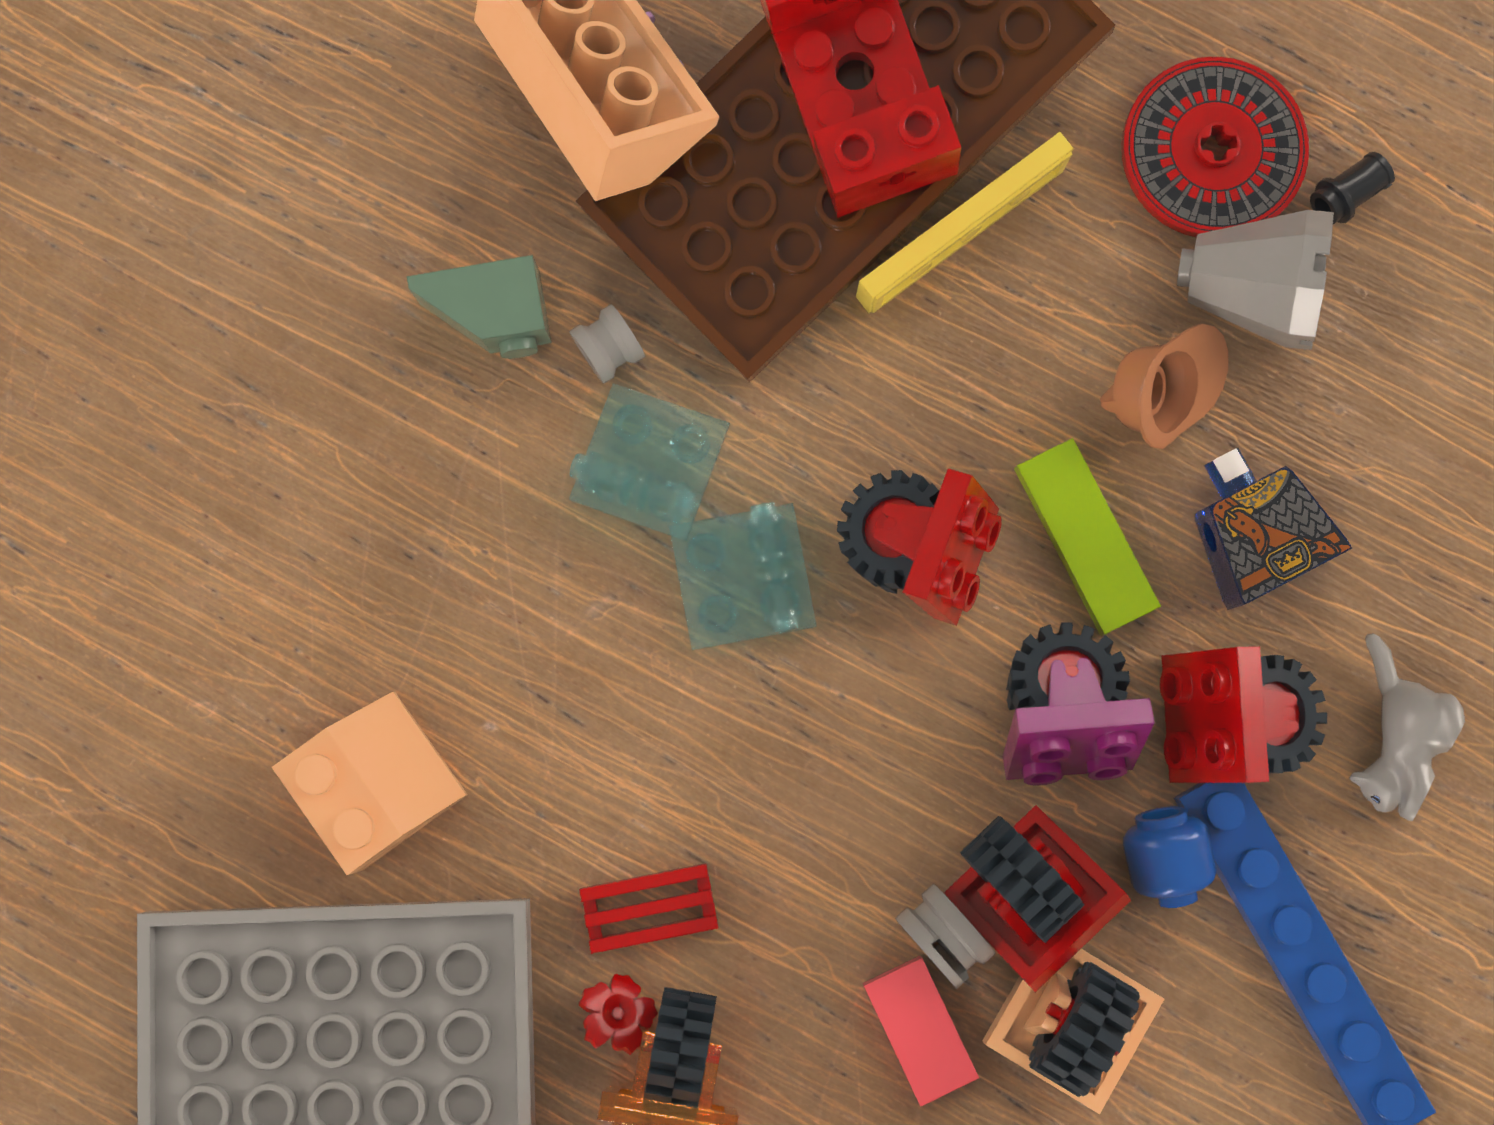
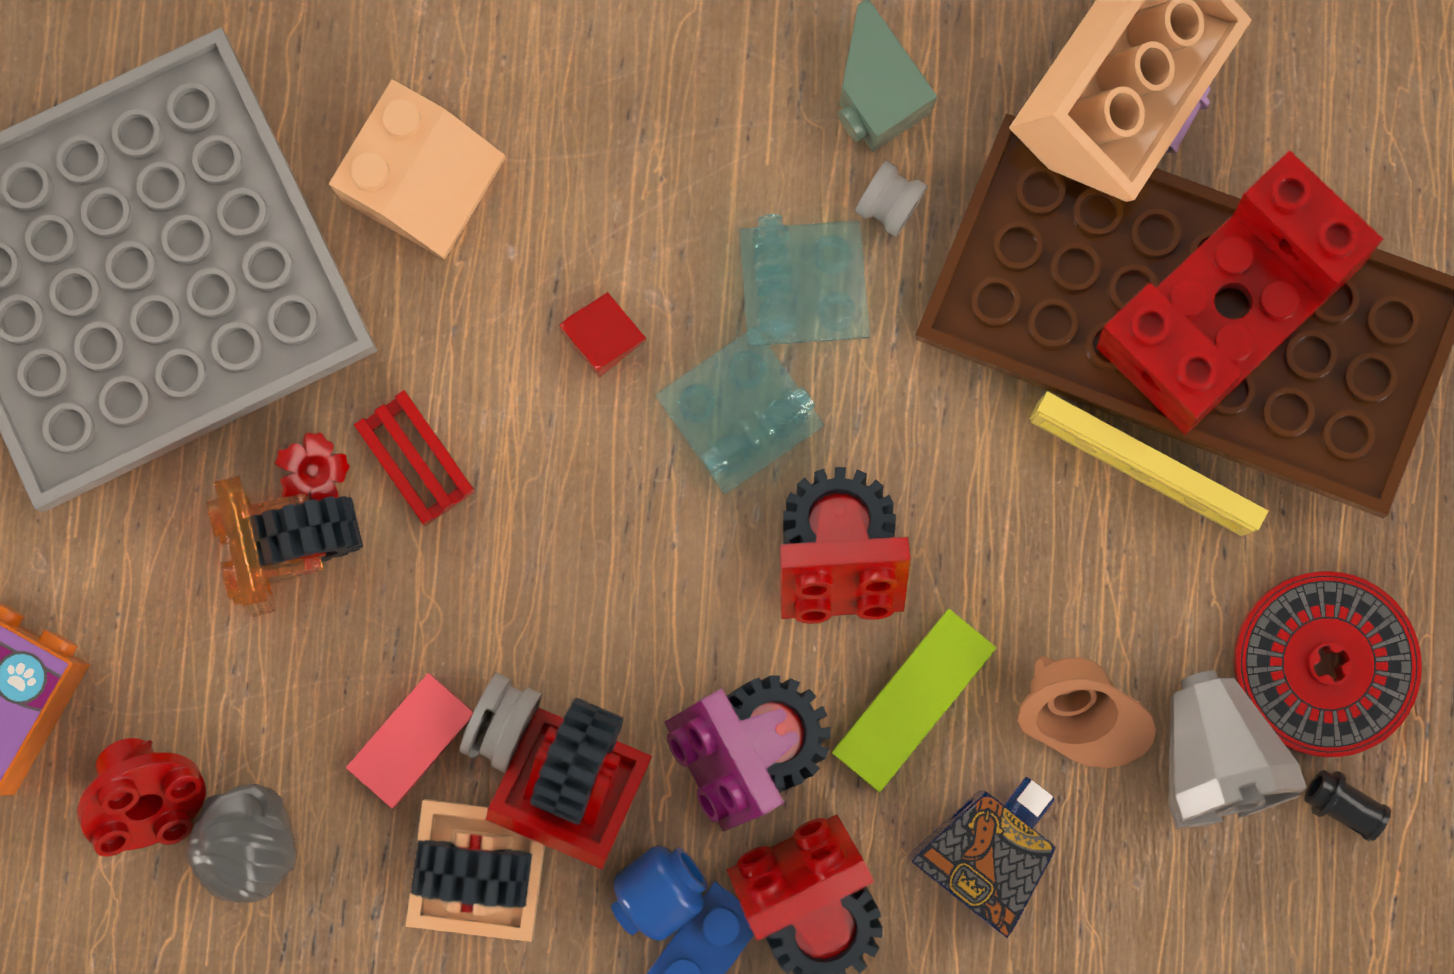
camera: 65 degrees right, 0 degrees up
(610, 673) = (602, 333): none -> red slope

